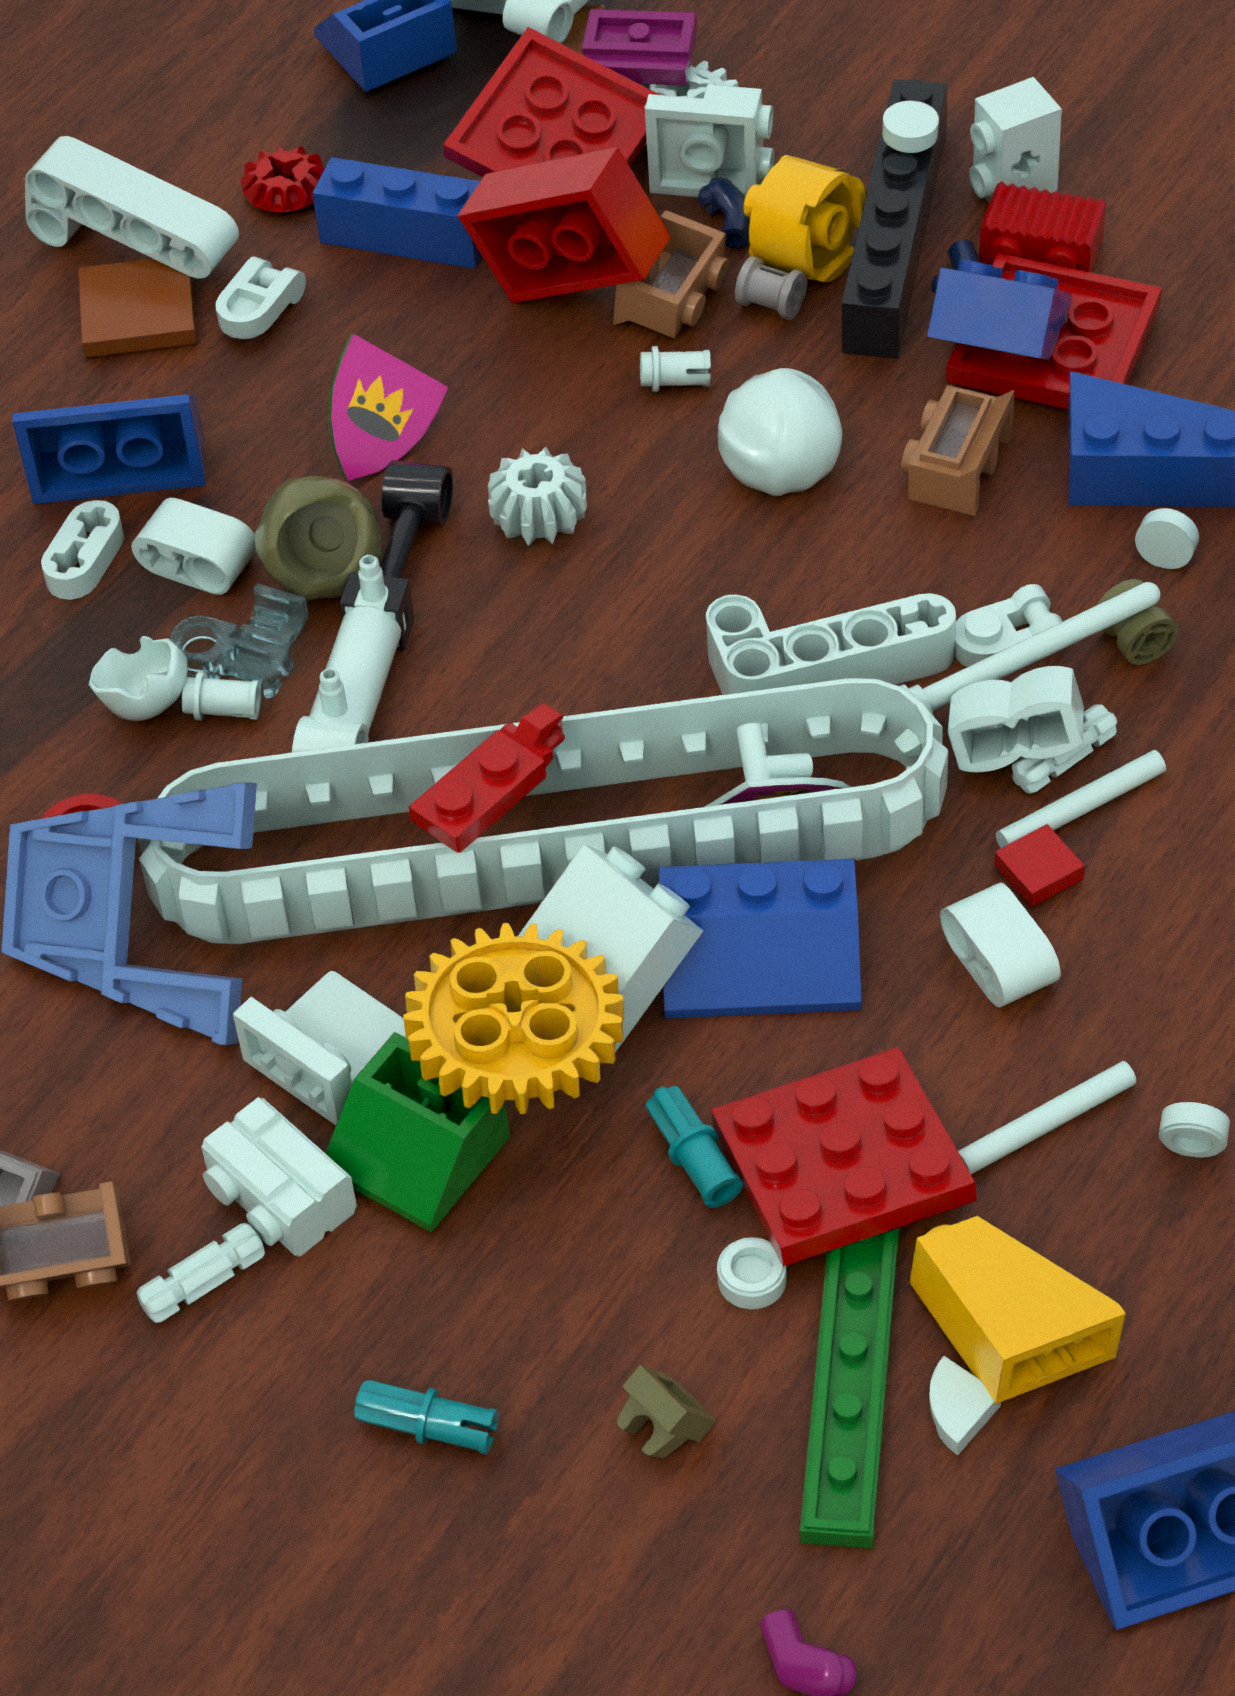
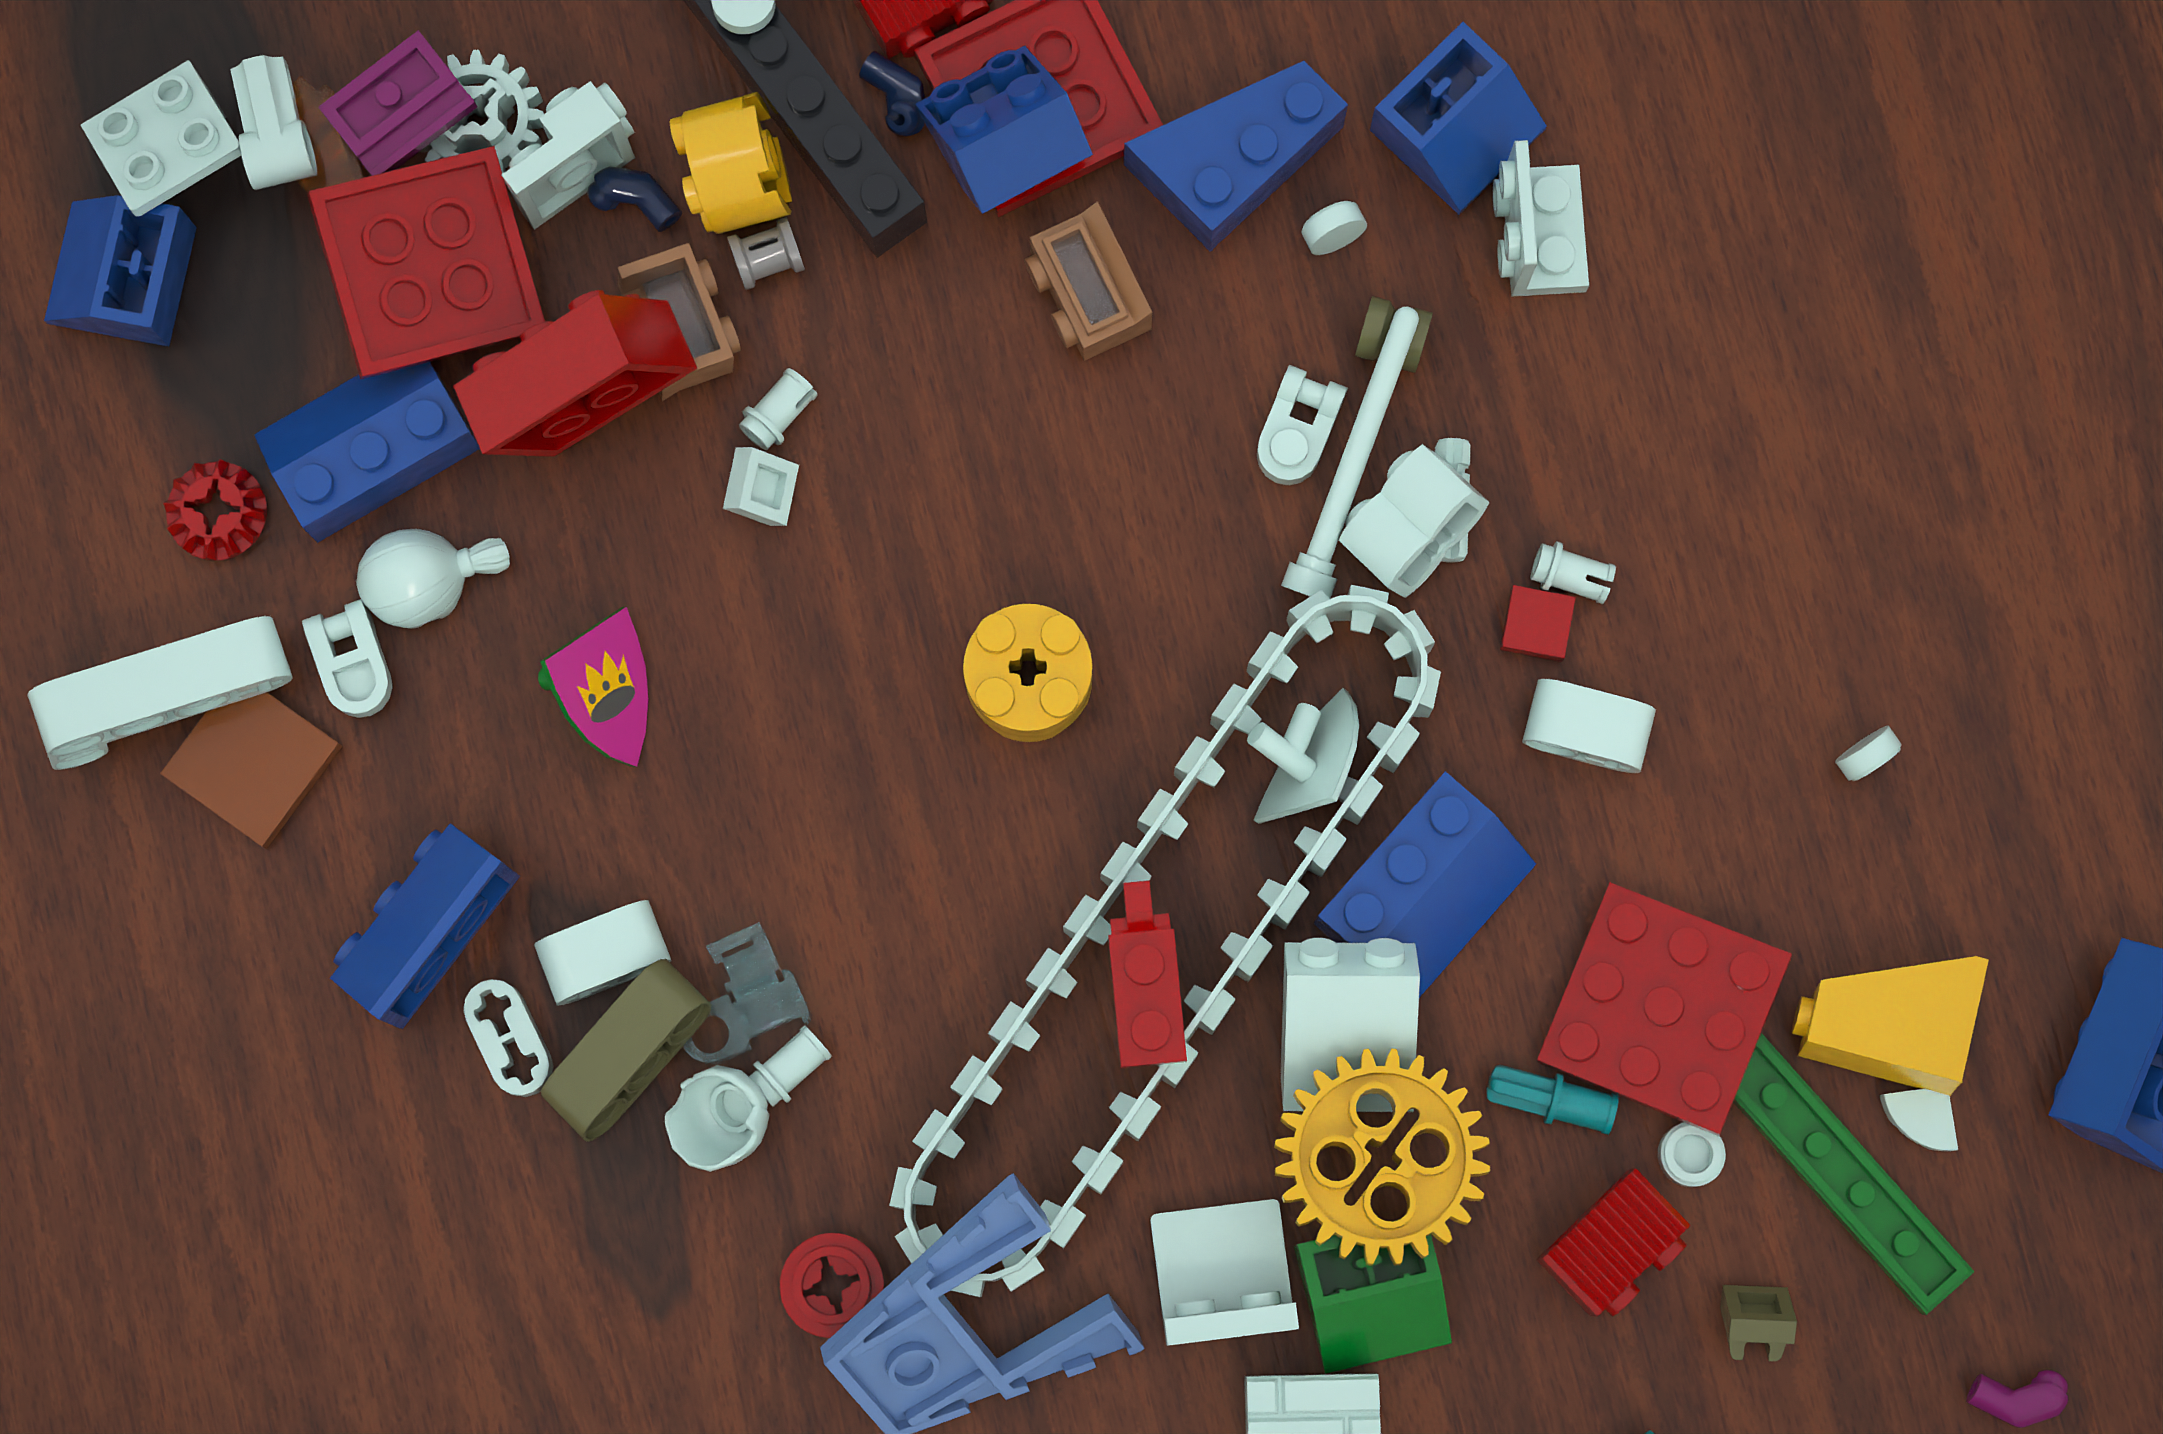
camera: 50 degrees left, 30 degrees up
(136, 595) = (626, 1049): none -> olive beam
(316, 535) = (712, 862): olive piece -> none
(352, 288) = (421, 575): none -> light aqua hair
(375, 612) = (838, 899): piece -> none
(537, 496) = (794, 645): light aqua gear -> none
(611, 393) = (761, 486): none -> light aqua plate
(621, 1264) = (1615, 1244): none -> red brick
(648, 606) = (1002, 646): none -> yellow brick
(780, 432) = (947, 406): light aqua piece -> none
(879, 642) = (1201, 574): light aqua beam -> none
(1047, 1117) = (1754, 835): light aqua bar -> none
(1086, 798) = (1508, 536): light aqua bar -> none
(1092, 840) = (1569, 572): none -> light aqua pin

